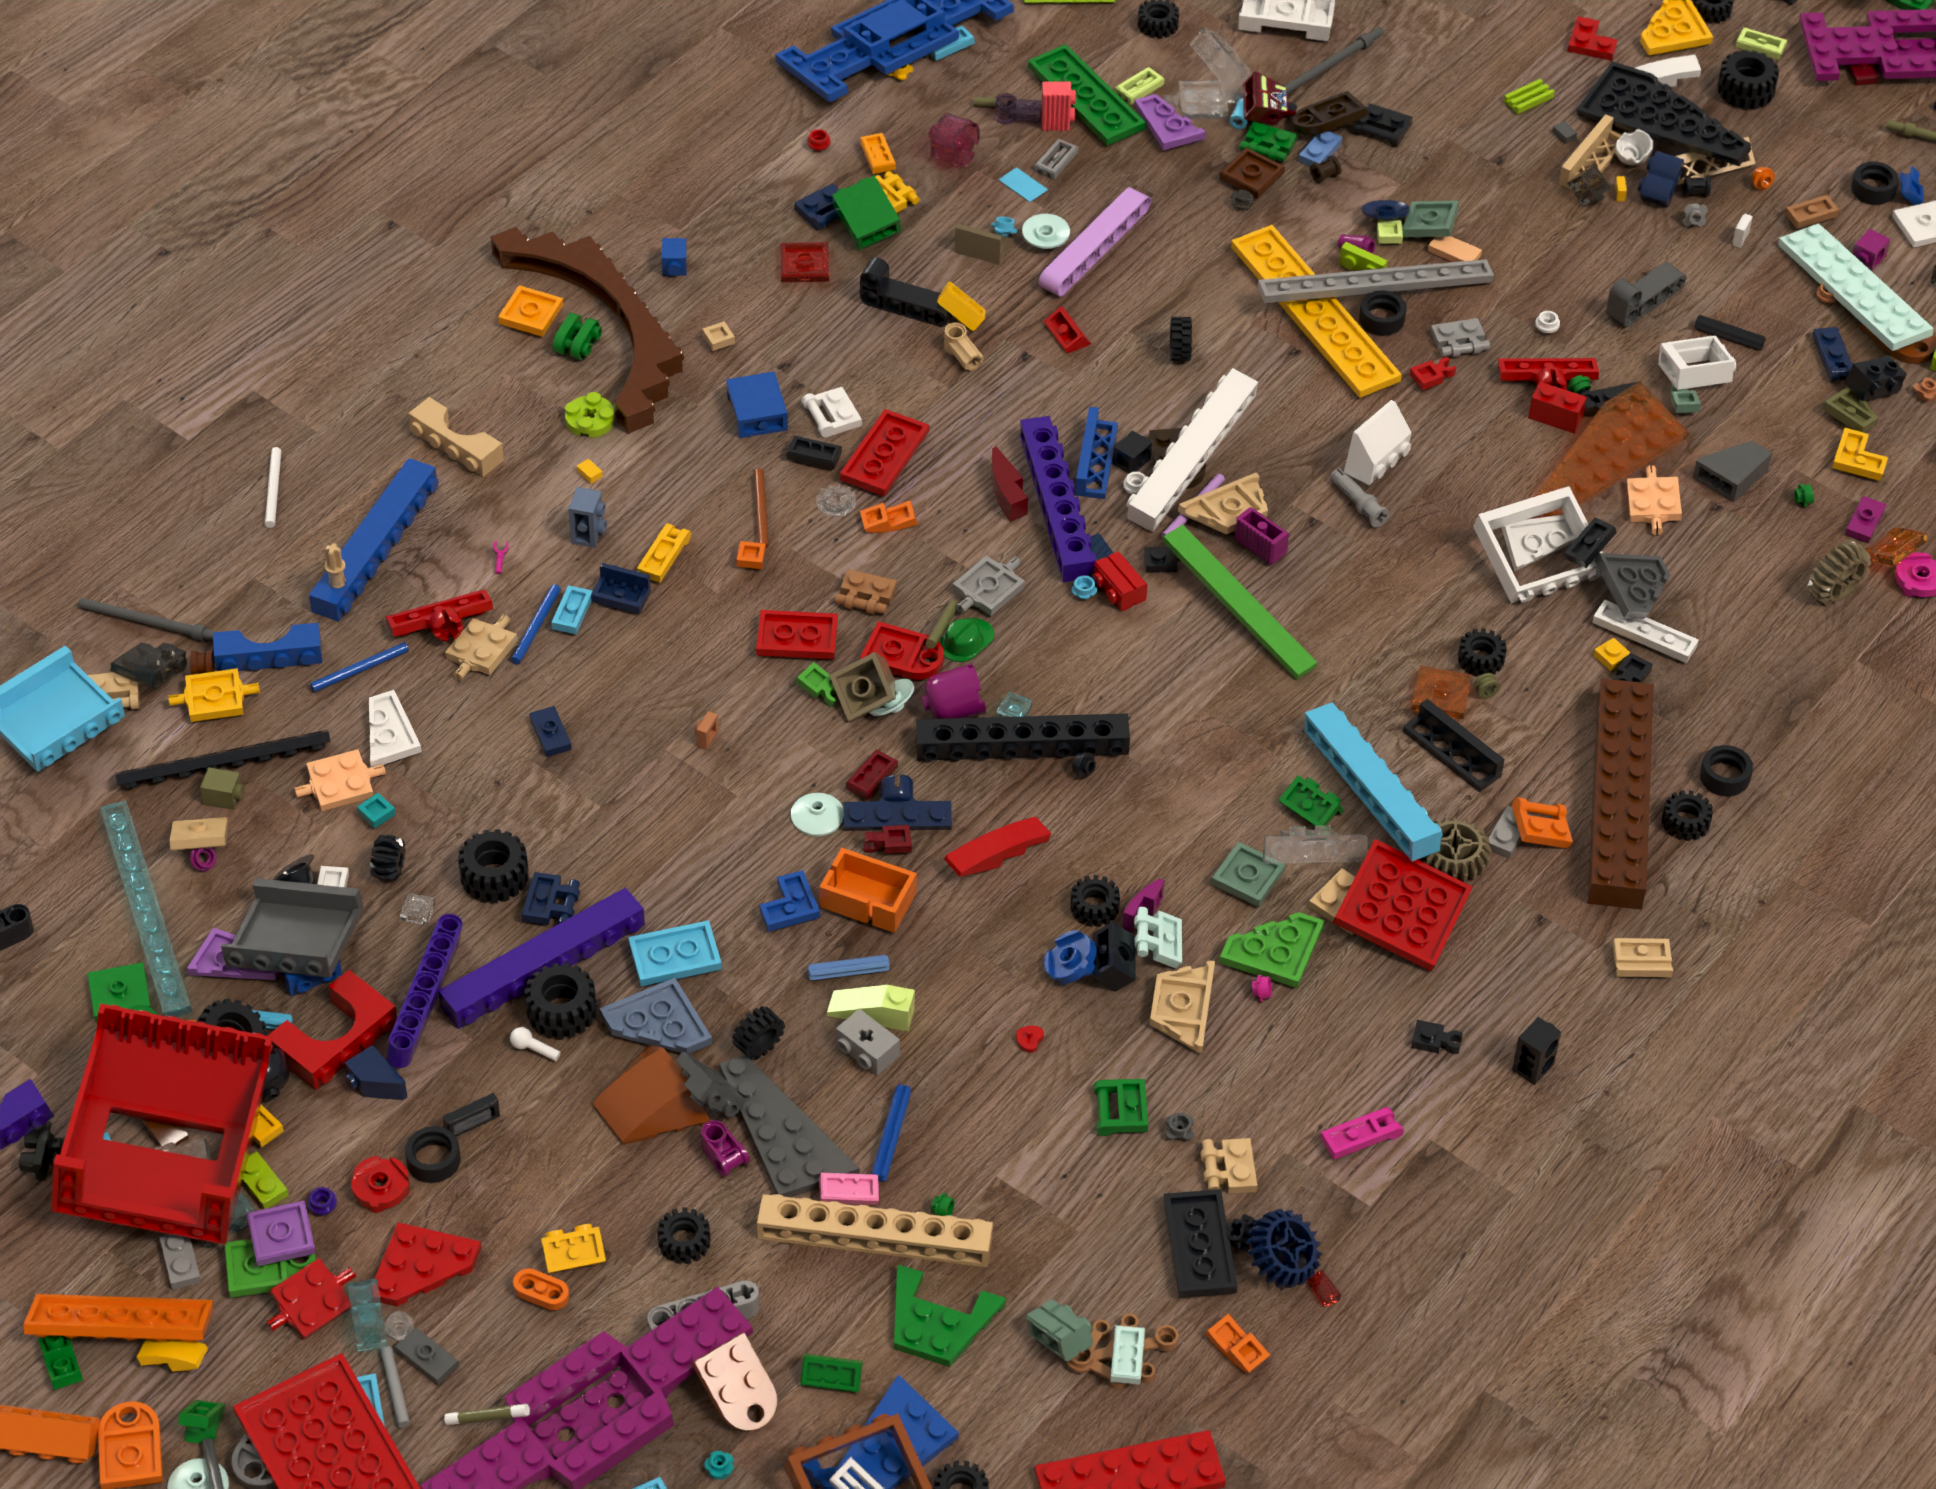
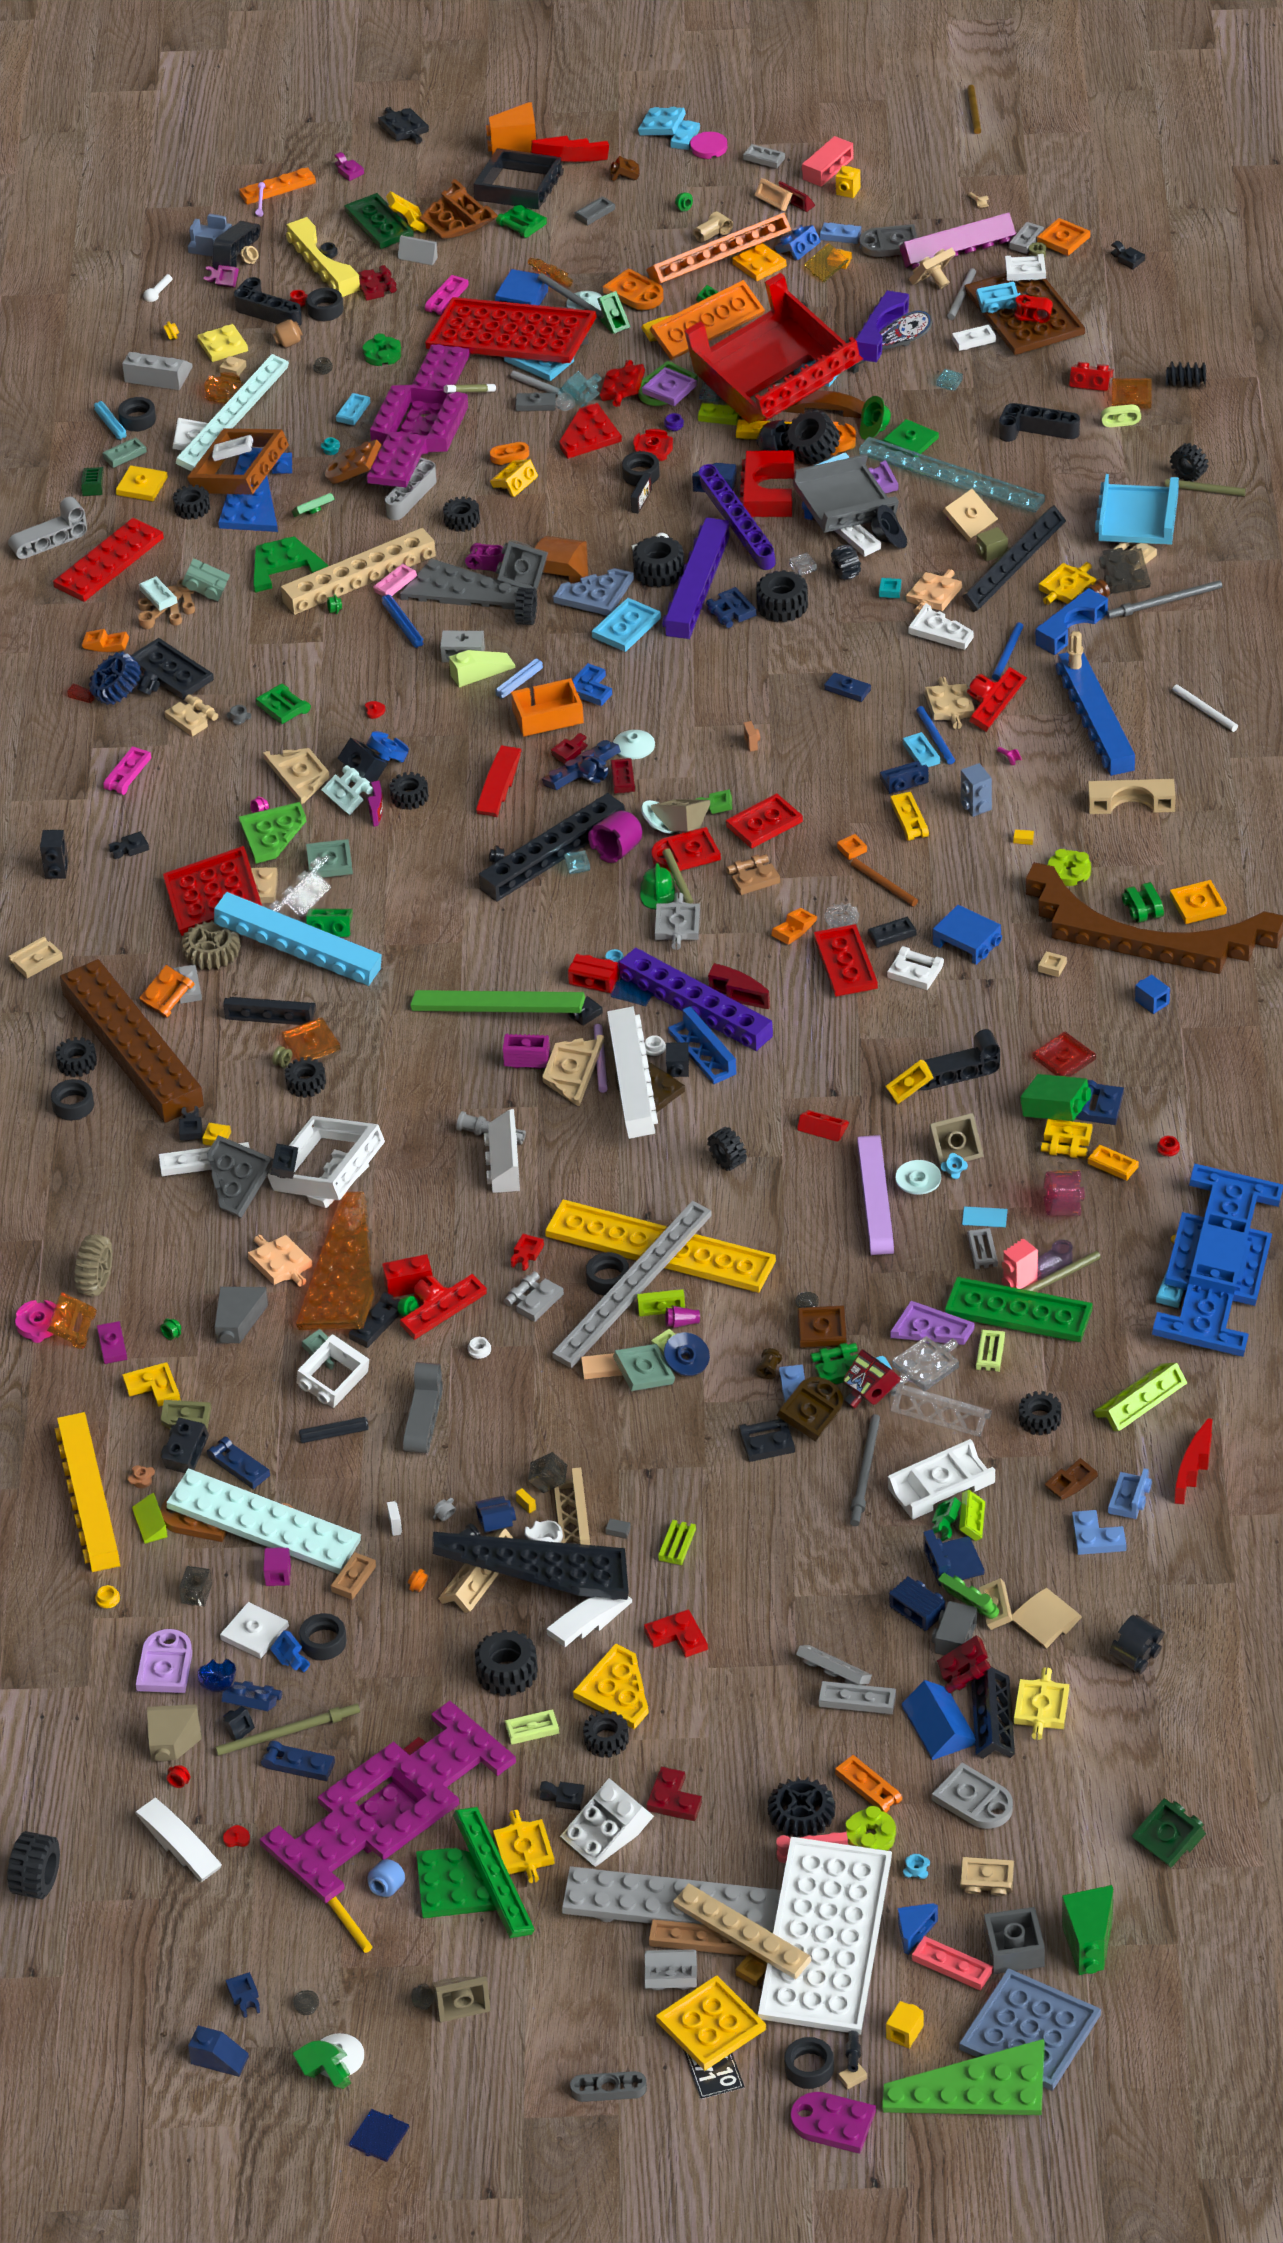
camera: 145 degrees right, 5 degrees down
(960, 346) = (884, 1058): tan piece -> none

